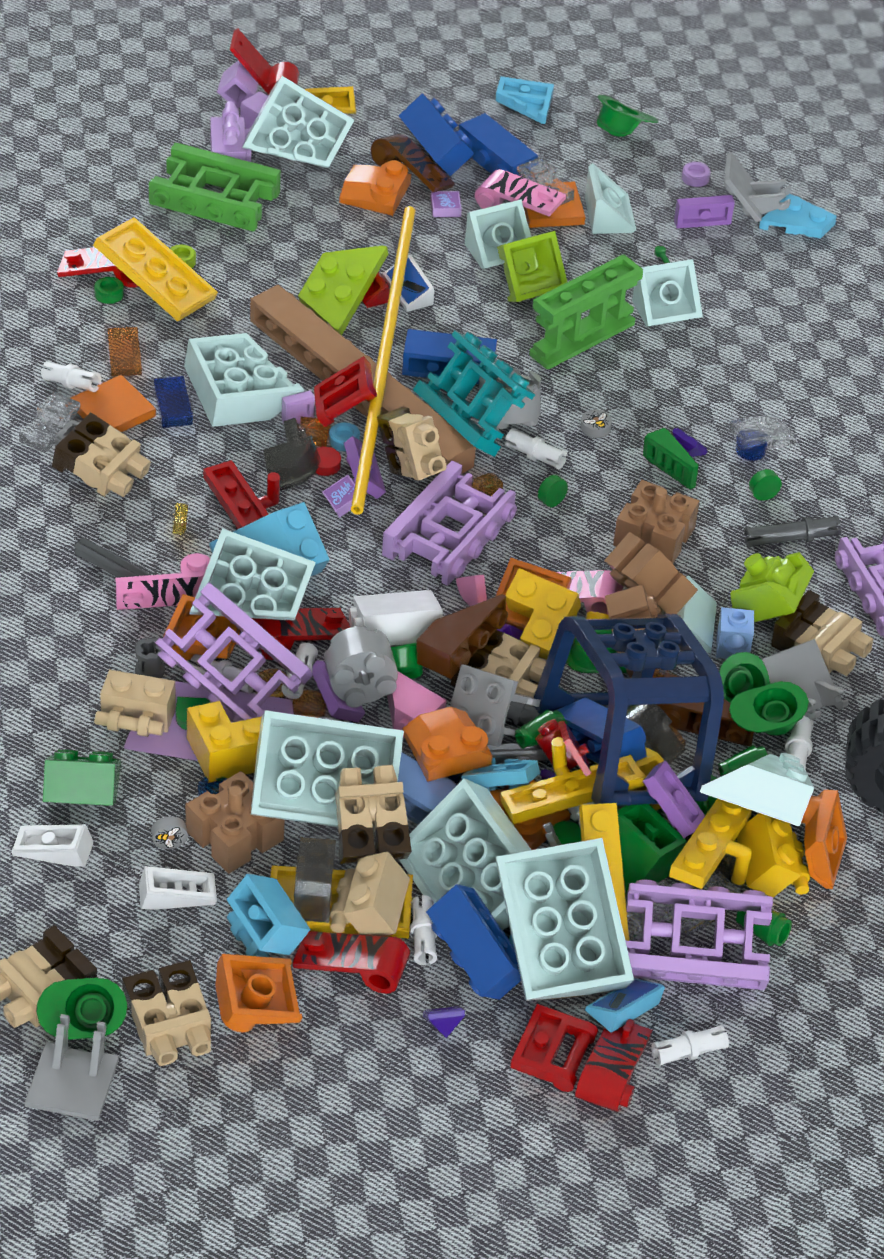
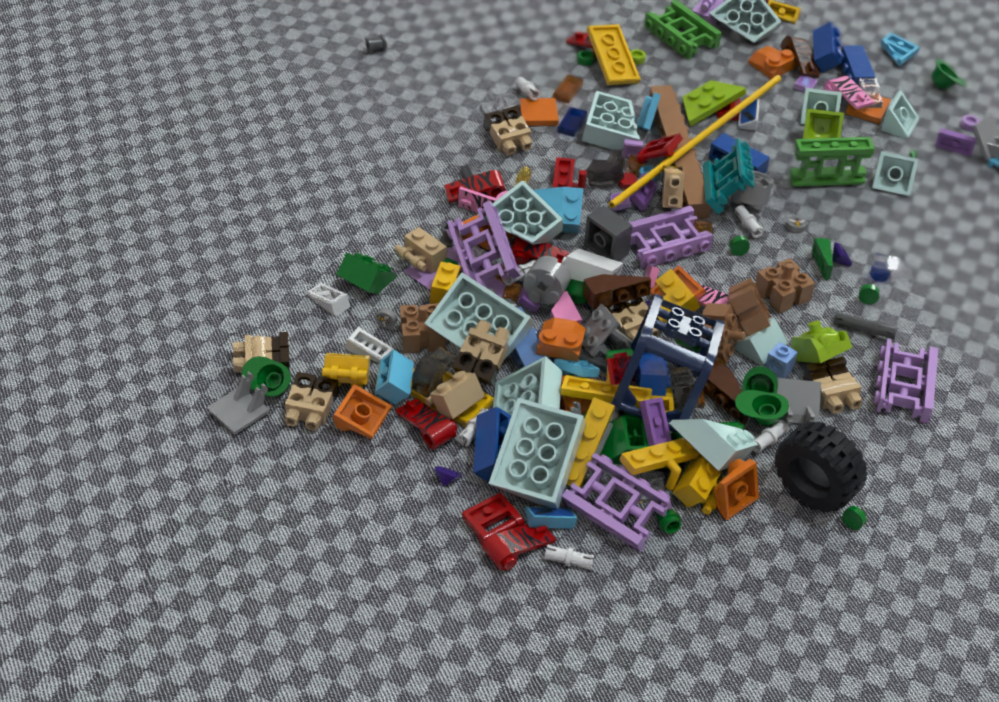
camera: 35 degrees right, 0 degrees up
(132, 558) = (484, 182): none -> red door
(186, 936) = (347, 368): none -> yellow brick
(280, 339) = (648, 112): none -> medium azure slope
(378, 556) = (607, 234): none -> dark grey brick

